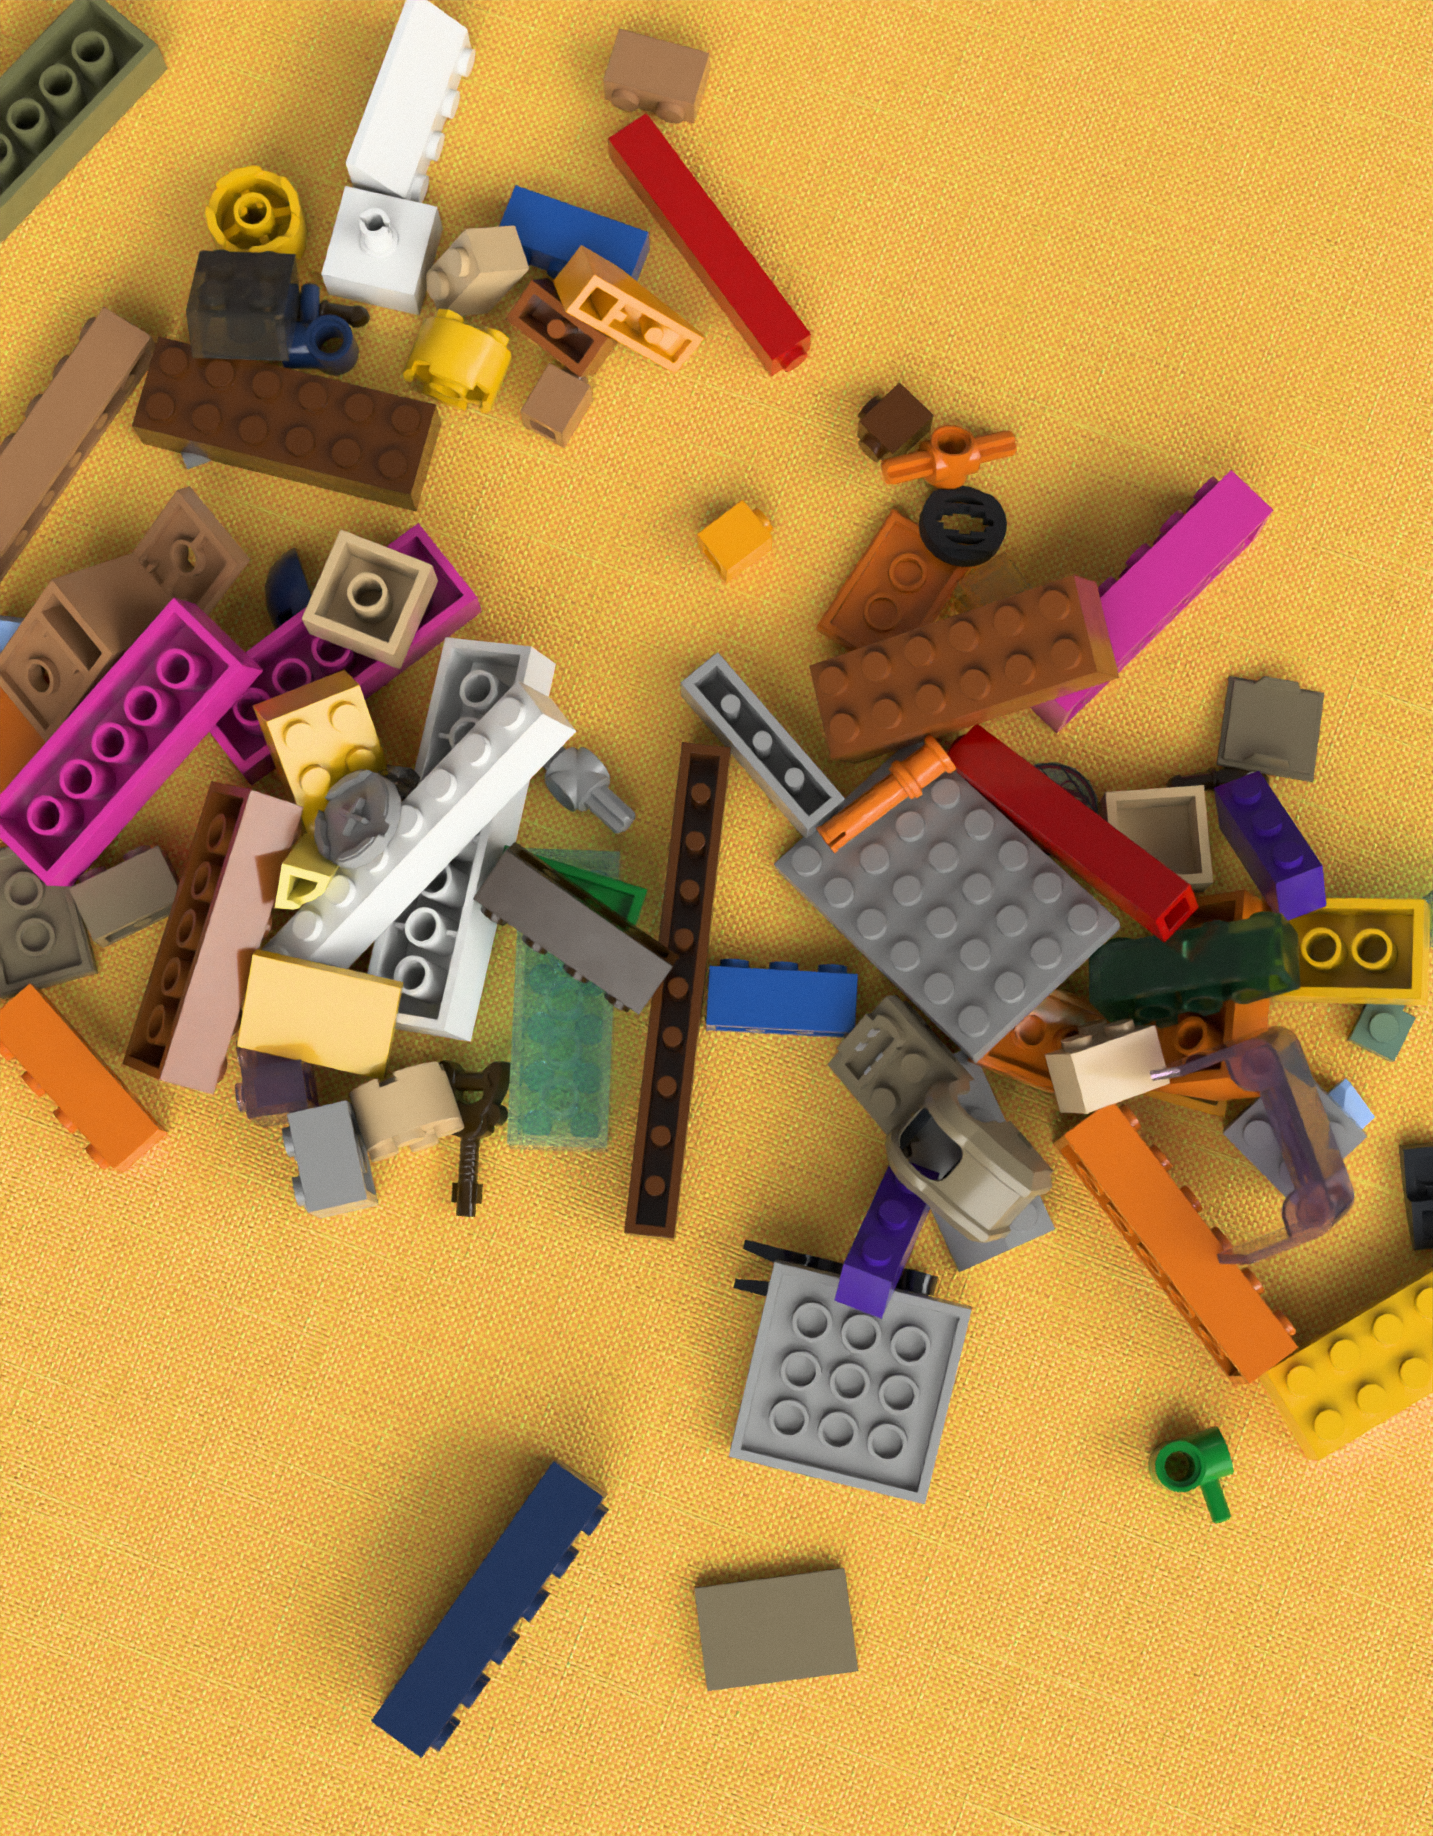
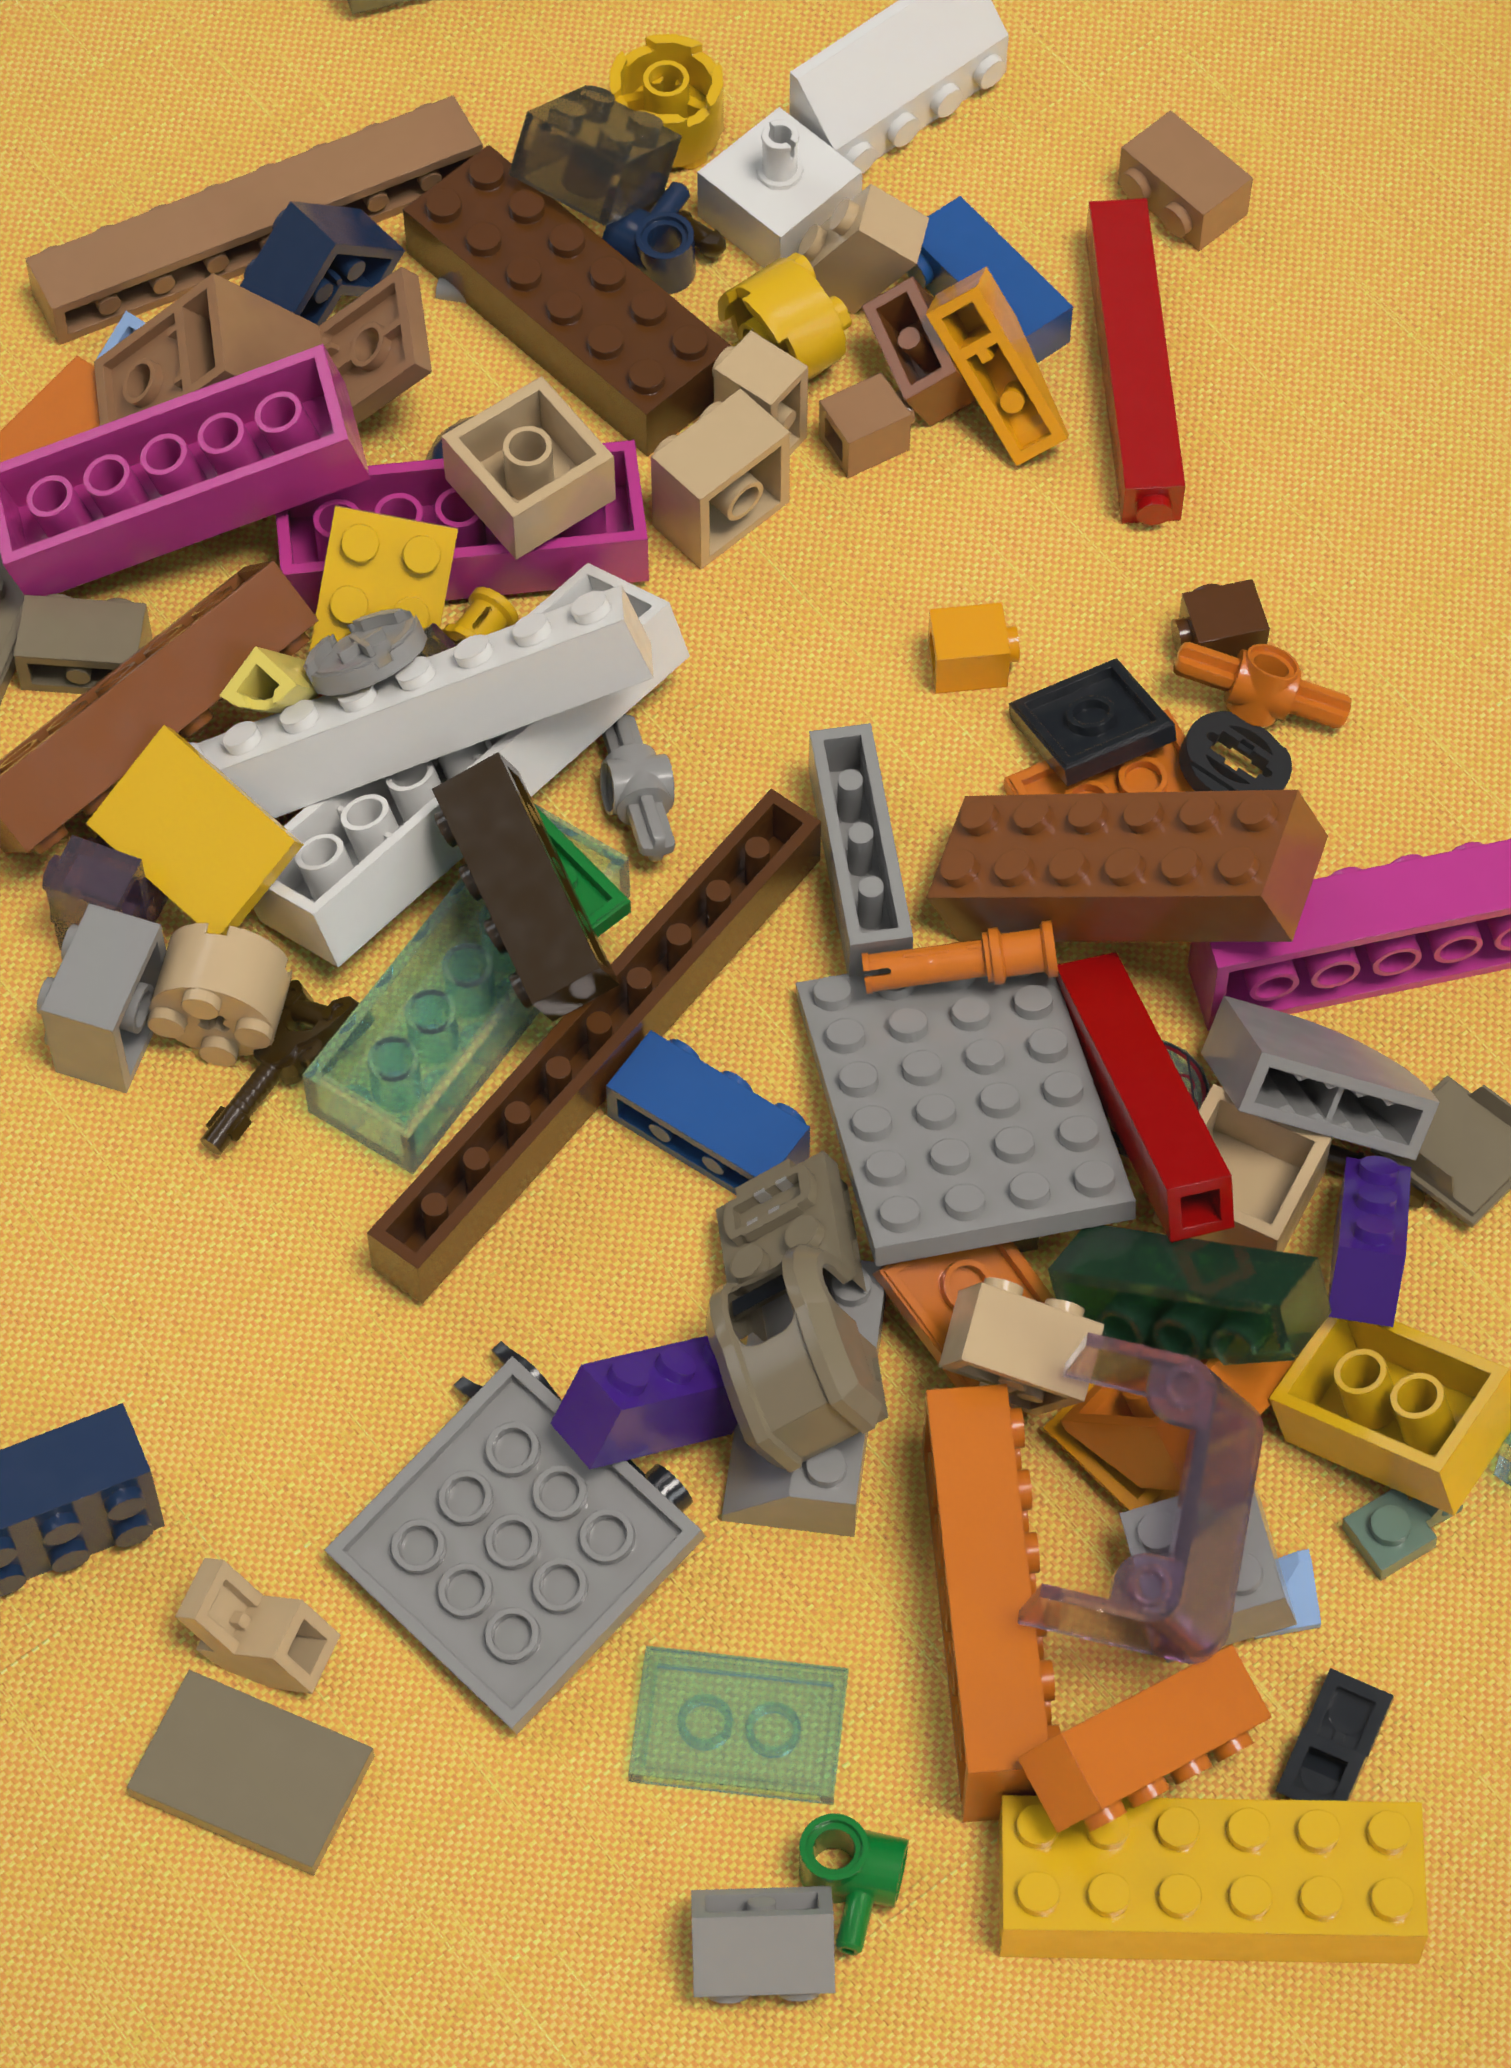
camera: 30 degrees right, 20 degrees down
(95, 503) = (319, 257): none -> dark blue brick
(399, 705) = (478, 618): none -> yellow bush
(479, 435) = (769, 378): none -> tan brick
(489, 512) = (720, 478): none -> tan brick
(725, 1541) = (254, 1634): none -> tan brick
(851, 550) = (1092, 722): none -> black tile
(1059, 1408) = (739, 1725): none -> clear light blue tile
(1163, 745) = (1316, 1079): none -> light grey brick
(1172, 1552) = (763, 1943): none -> light grey brick
(1338, 1295) = (1143, 1739): none -> orange brick

